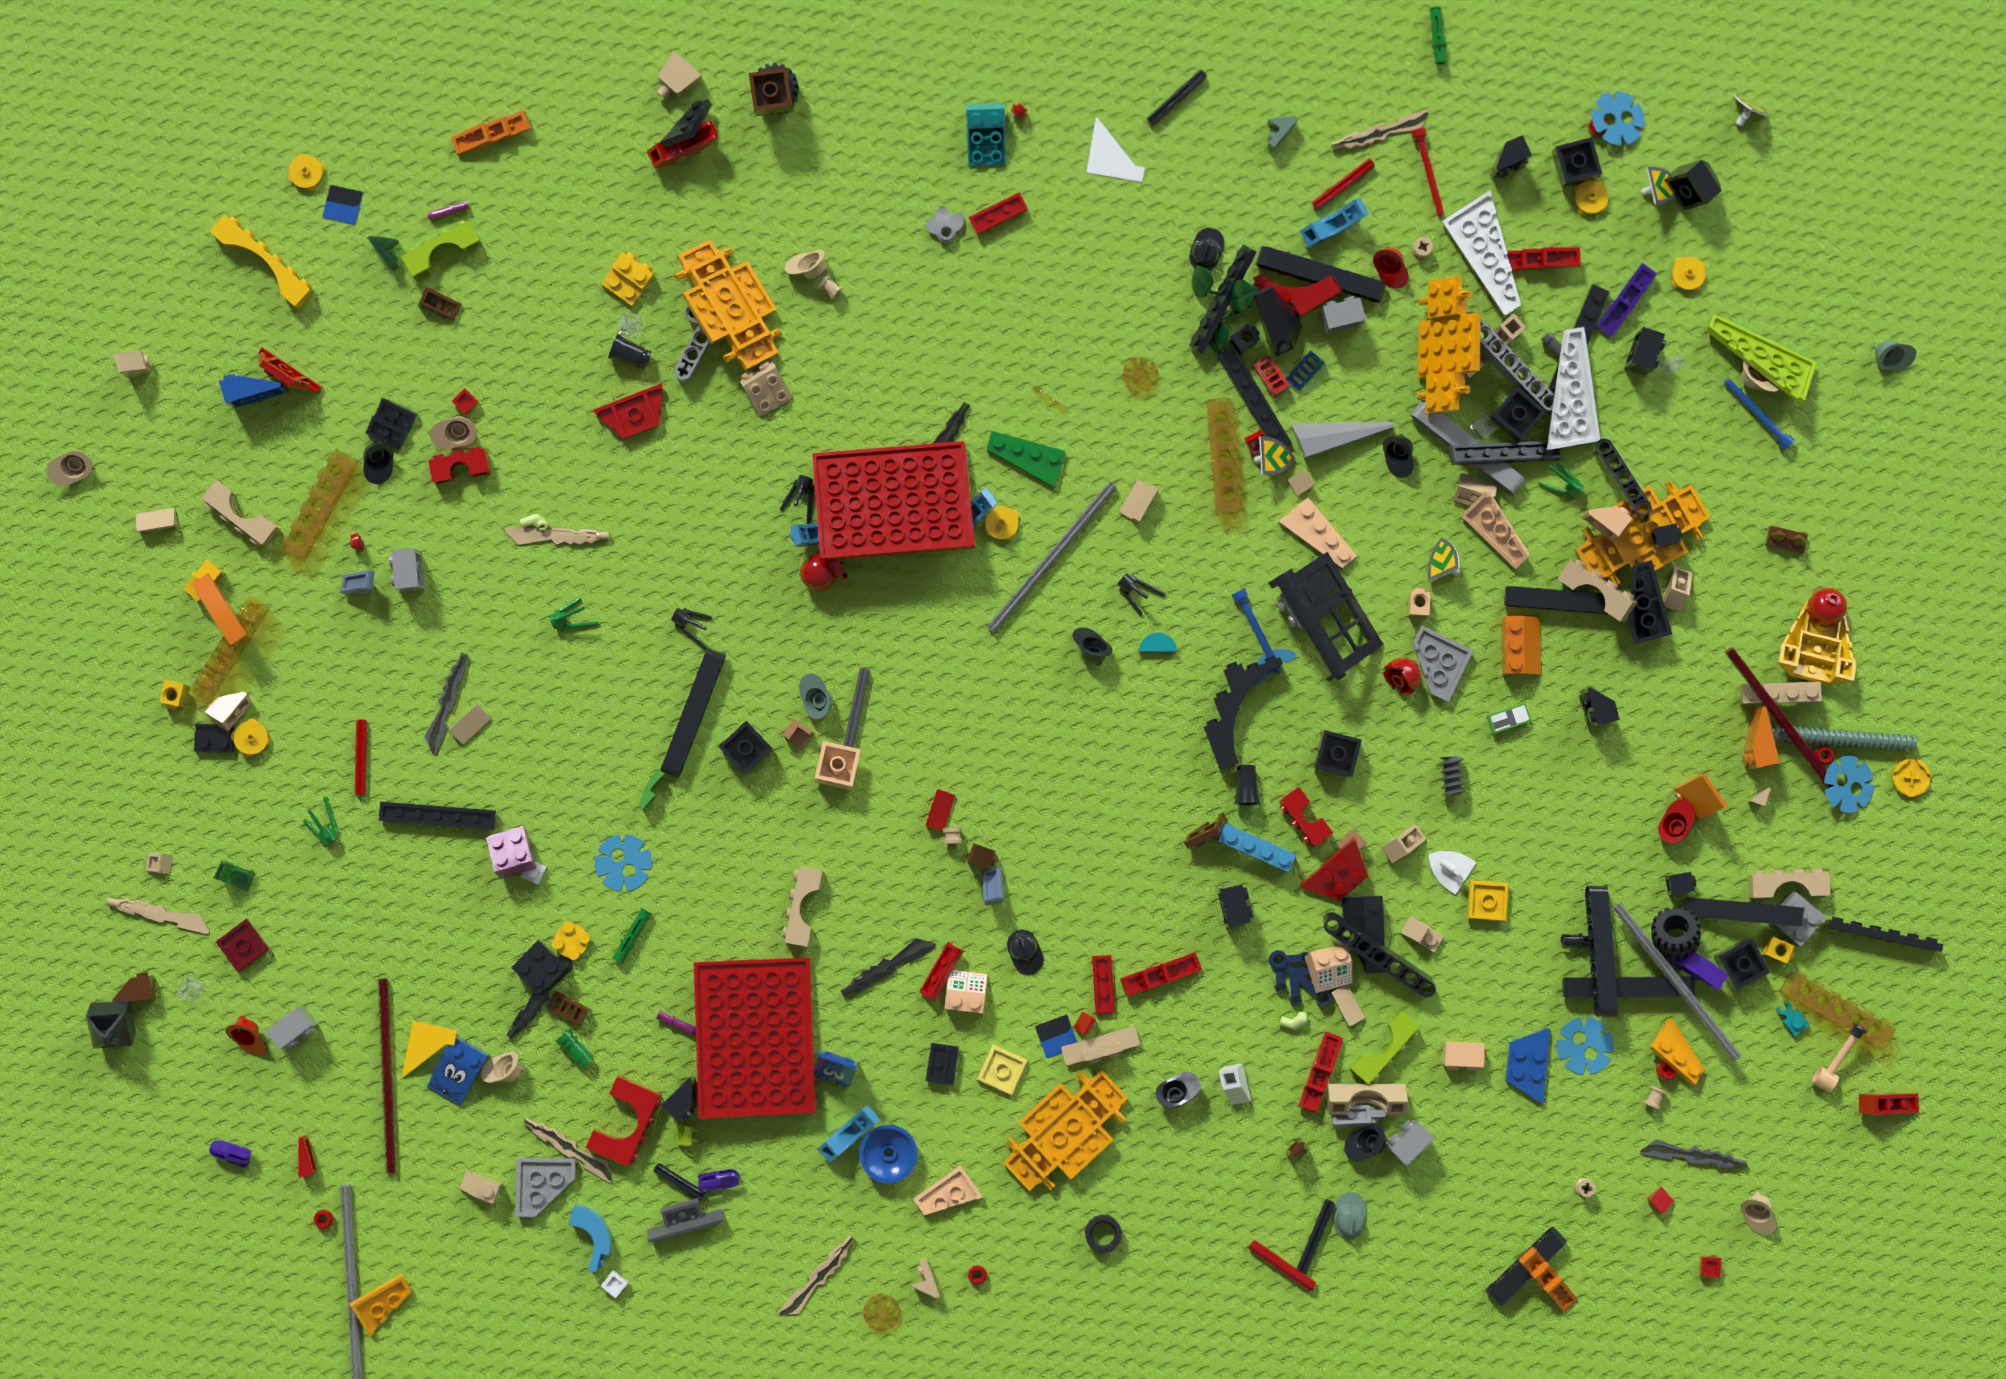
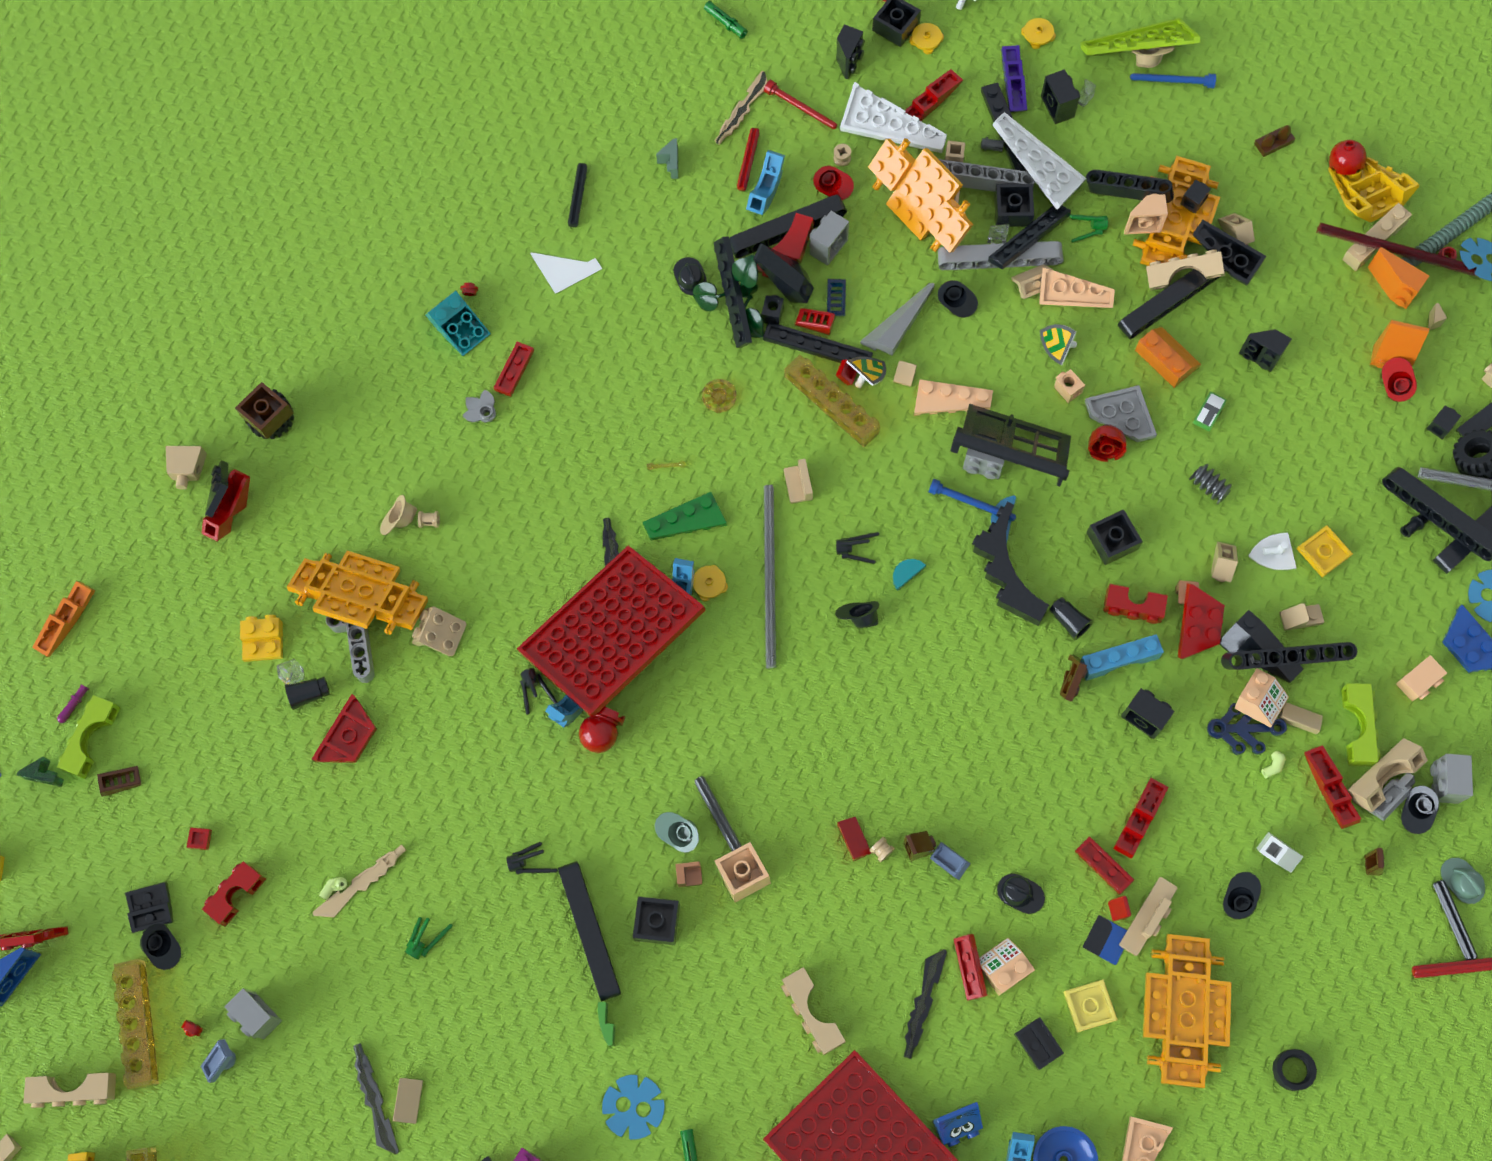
camera: 30 degrees left, 15 degrees down
(453, 433) = (207, 870): tan piece -> none

